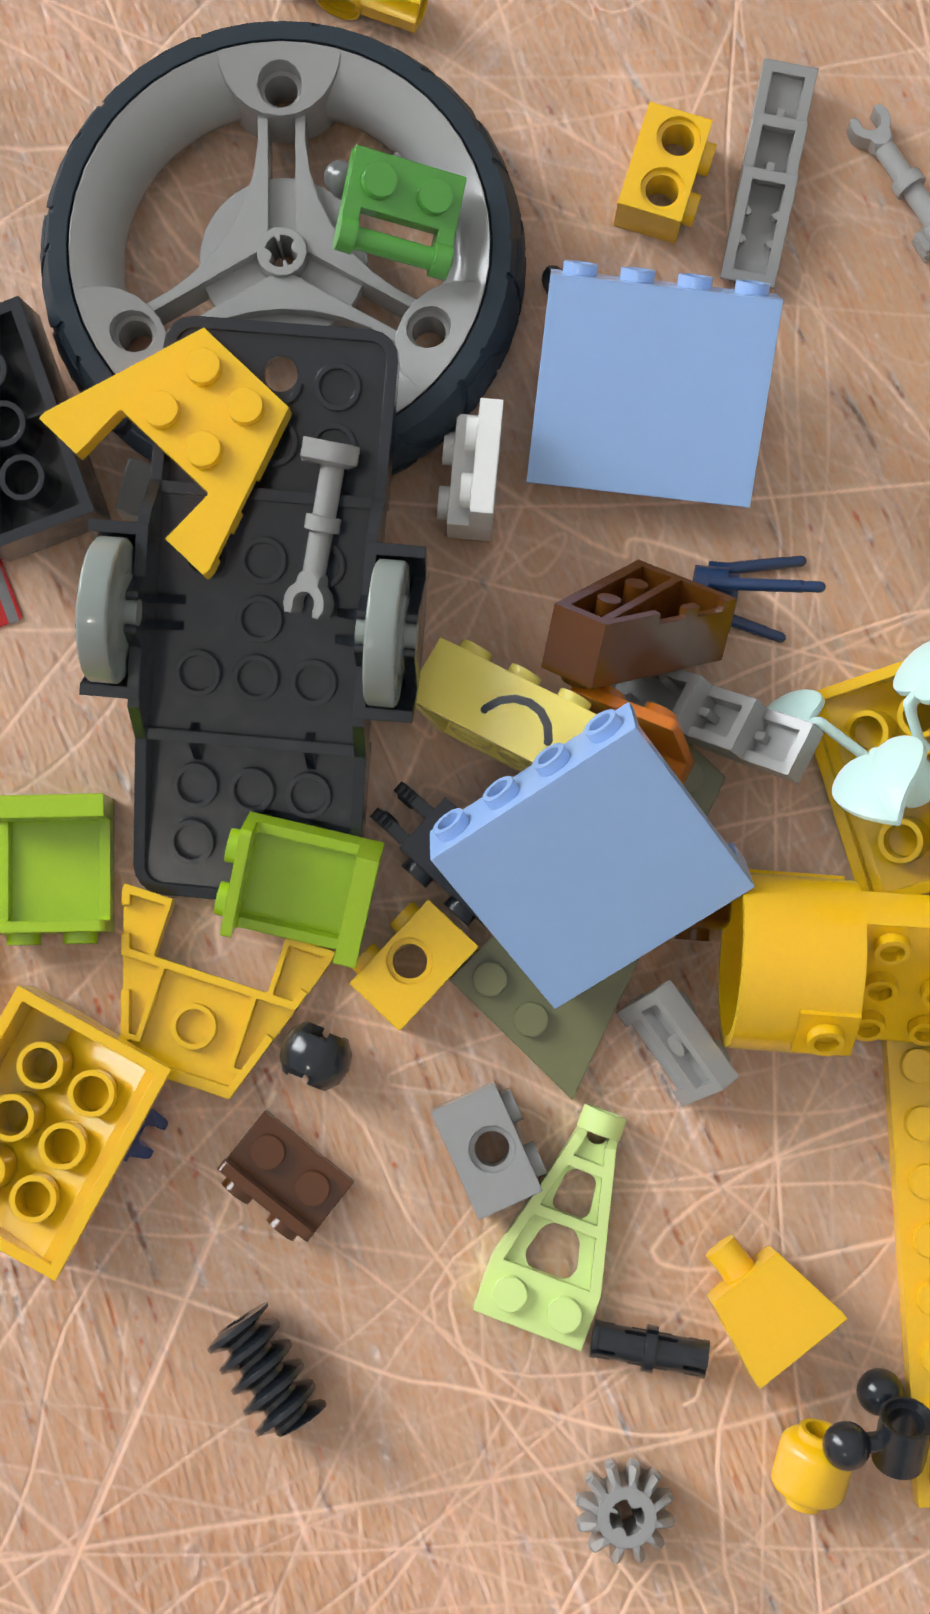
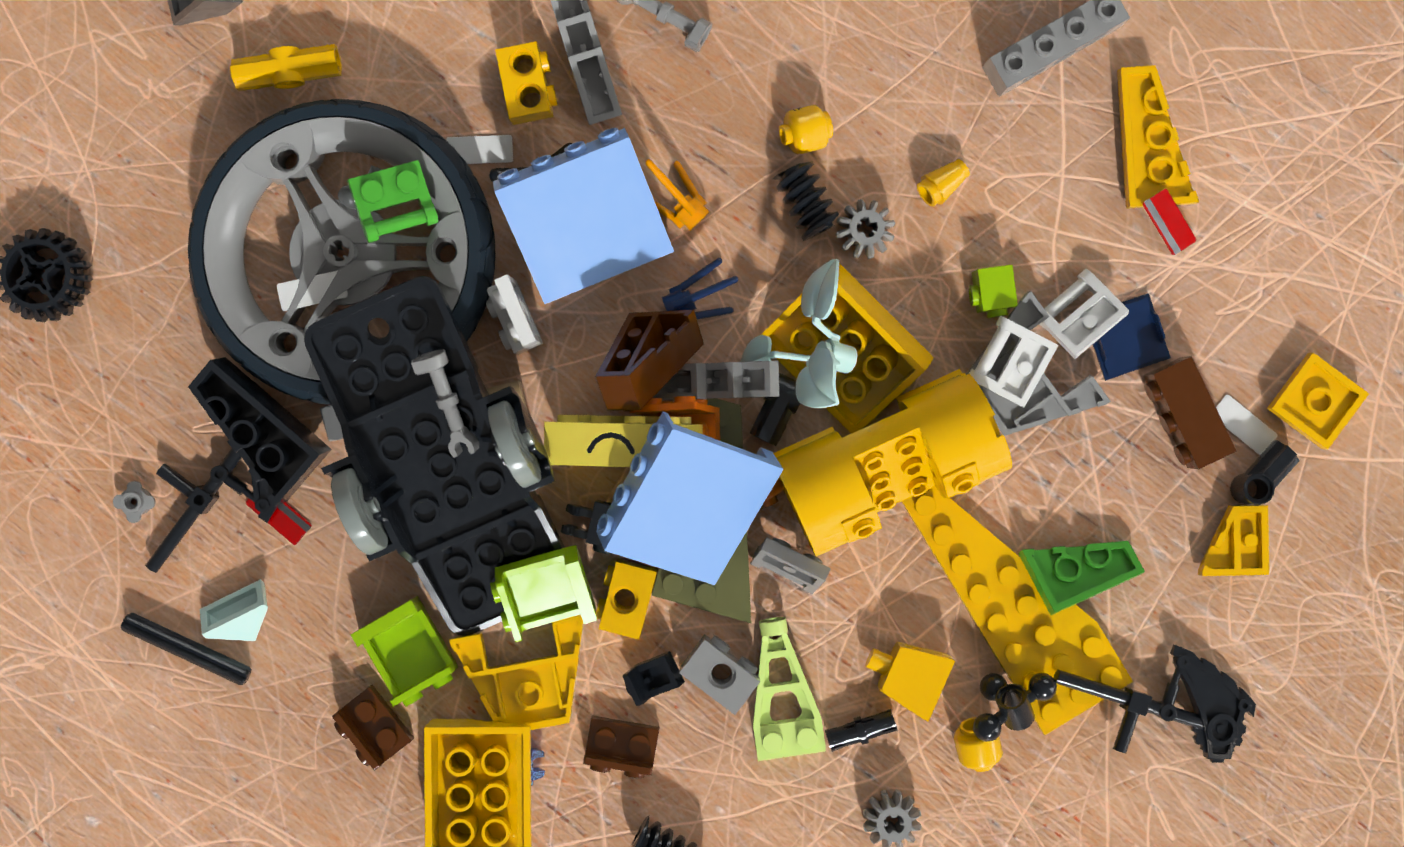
camera: 25 degrees left, 5 degrees up
(202, 415) = (350, 377): yellow wing -> none
(211, 292) = (313, 294): none -> white sticker
(311, 1054) = (602, 675): black piece -> none
(386, 1101) = (652, 678): none -> black bracket
(556, 235) = (483, 148): none -> white sticker
(775, 813) = (776, 412): none -> black piece
(803, 463) = (689, 209): none -> light orange plant

